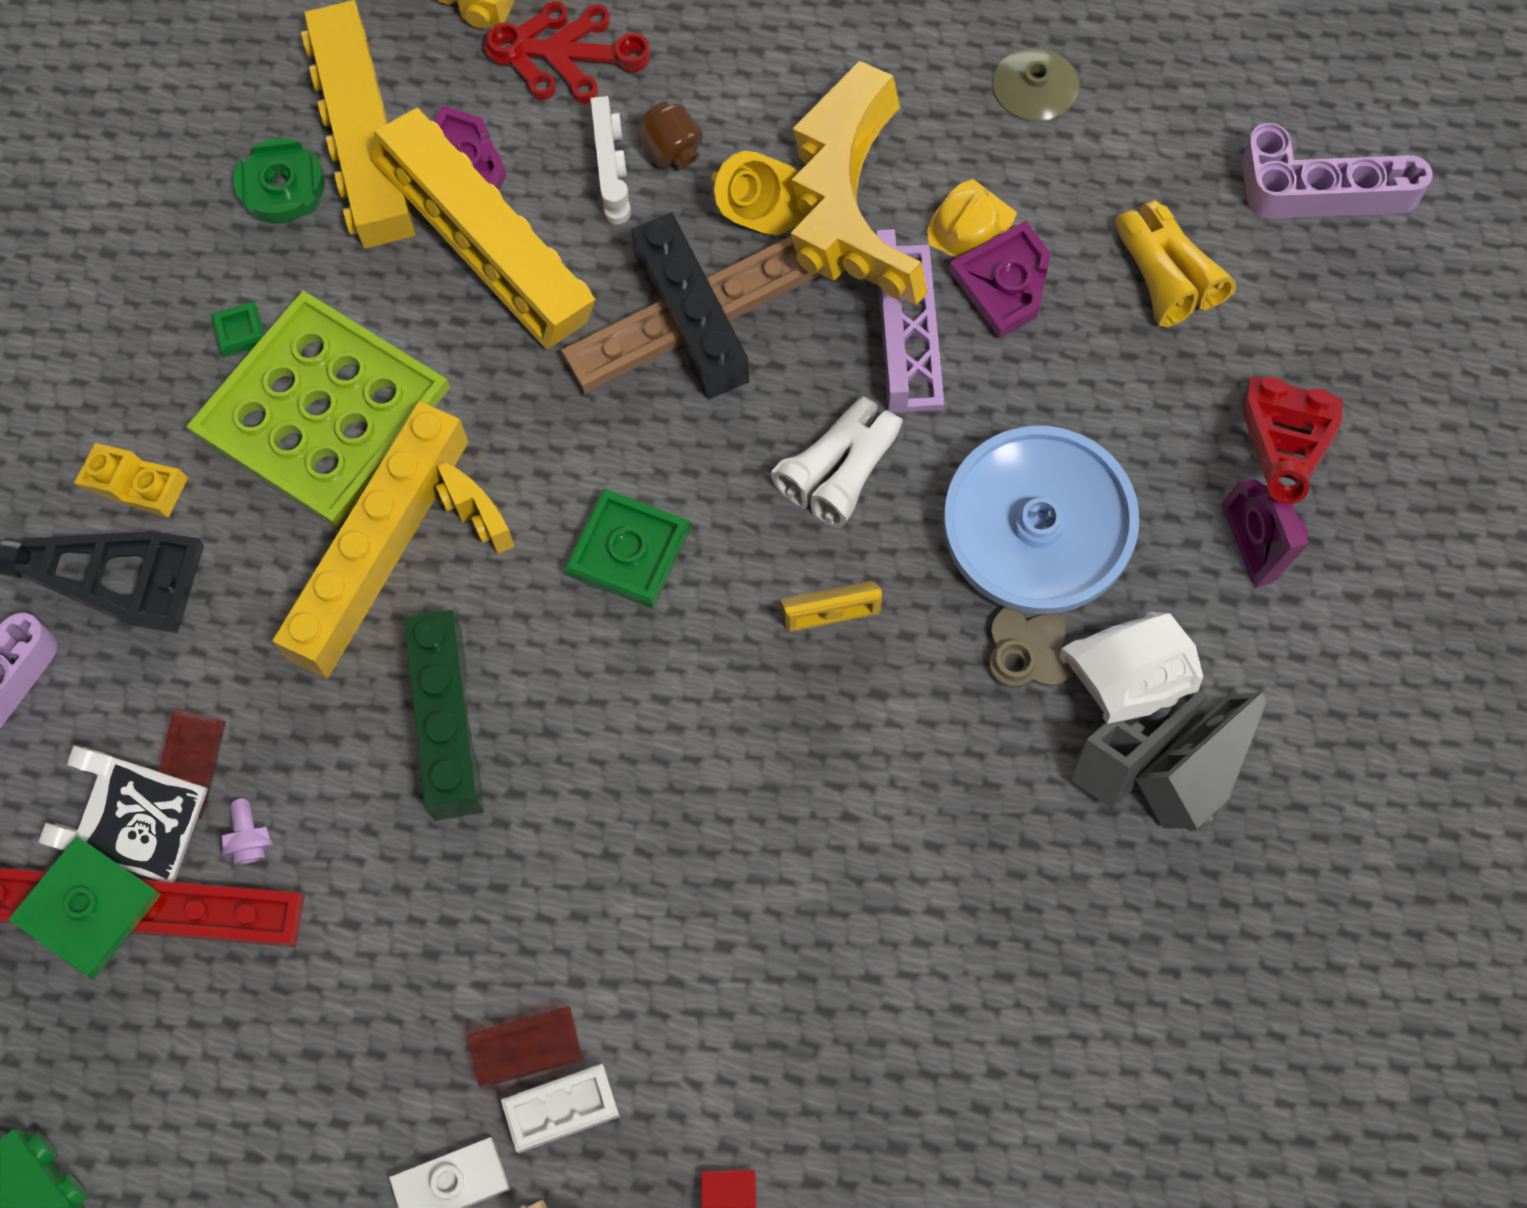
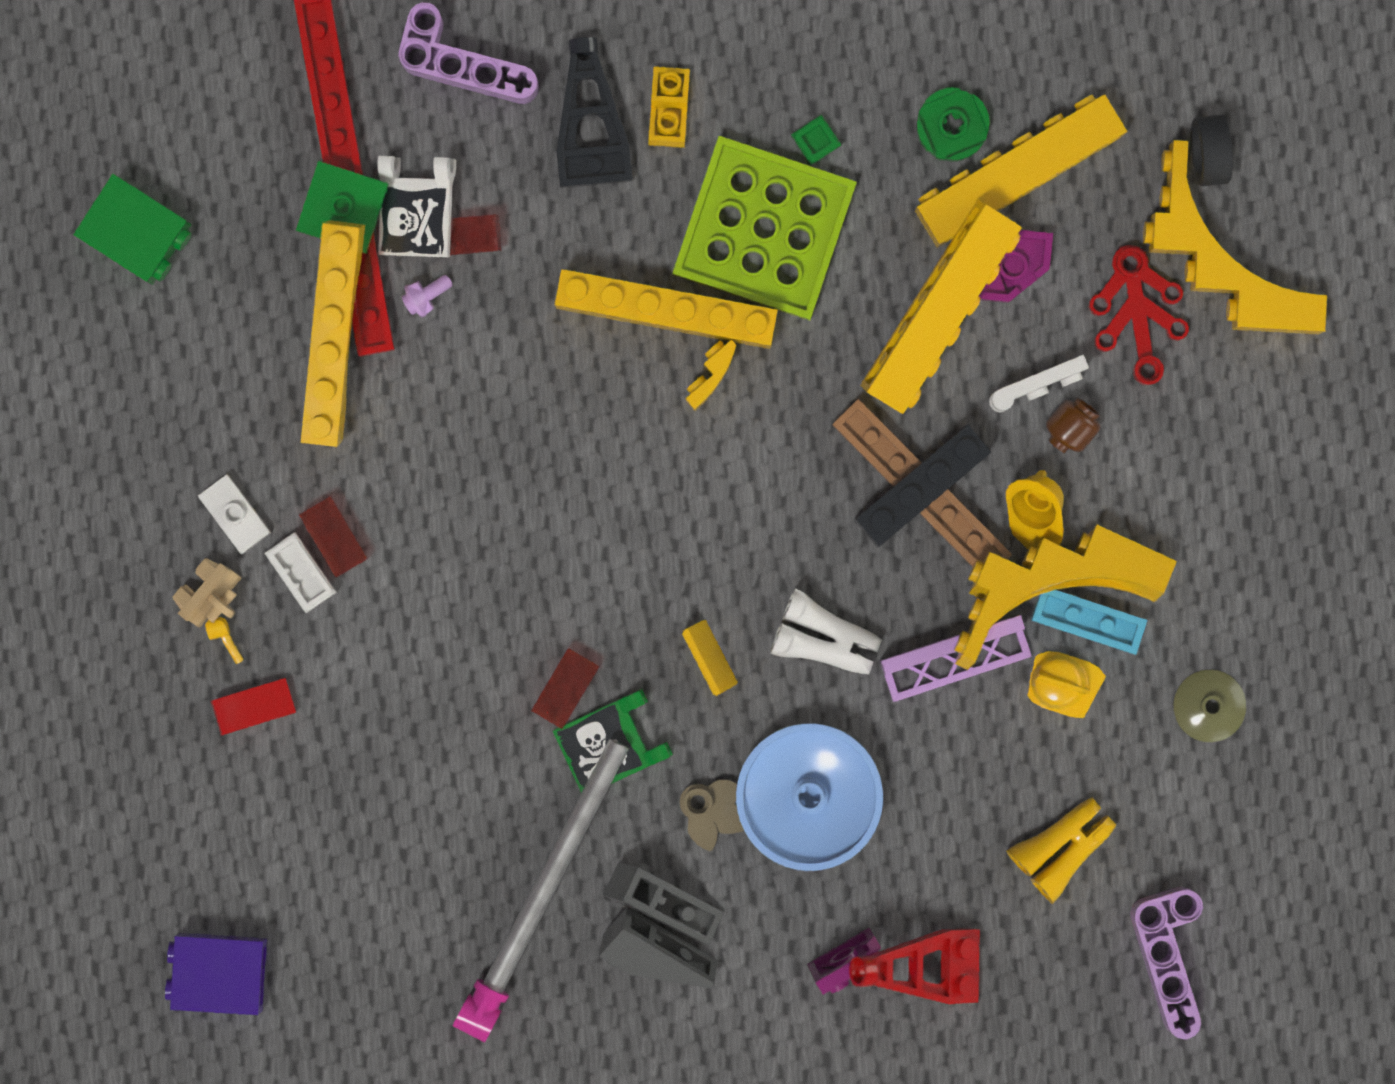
camera: 70 degrees right, 20 degrees up
(242, 959) = (331, 330): none -> yellow arch
(441, 715) = (545, 405): dark green arch -> none
(628, 548) = (712, 497): green plate -> none
(822, 790) = (565, 688): none -> clear red plate
(904, 172) = (1089, 620): none -> medium azure plate
(911, 757) = (586, 738): none -> flag
(1005, 277) = (1015, 724): magenta plate -> none
(1136, 666) = (710, 889): white slope -> none
(1242, 1020) = (482, 1008): none -> flat silver piece

